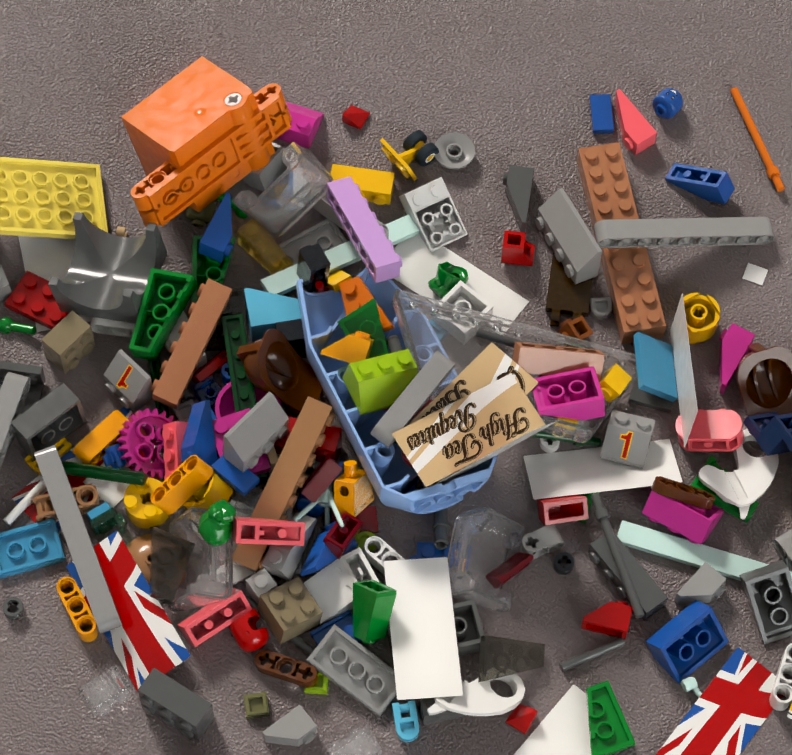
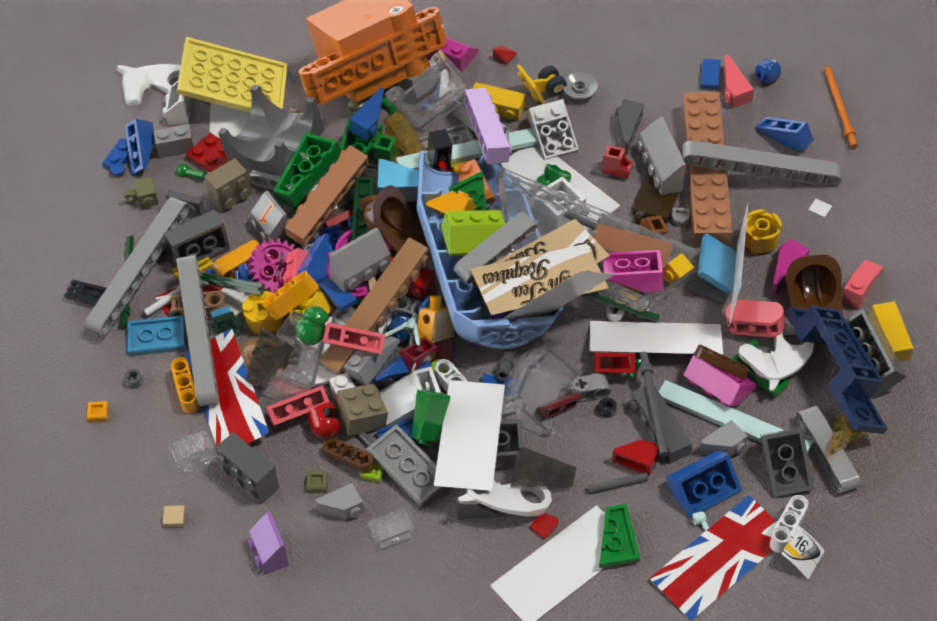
camera: 15 degrees right, 10 degrees down
(243, 268) = (385, 148): none -> green brick
(321, 478) = (409, 308): dark red slope -> none
(408, 727) = (442, 517): medium azure plate -> none
(627, 438) = (682, 315): light grey slope -> none

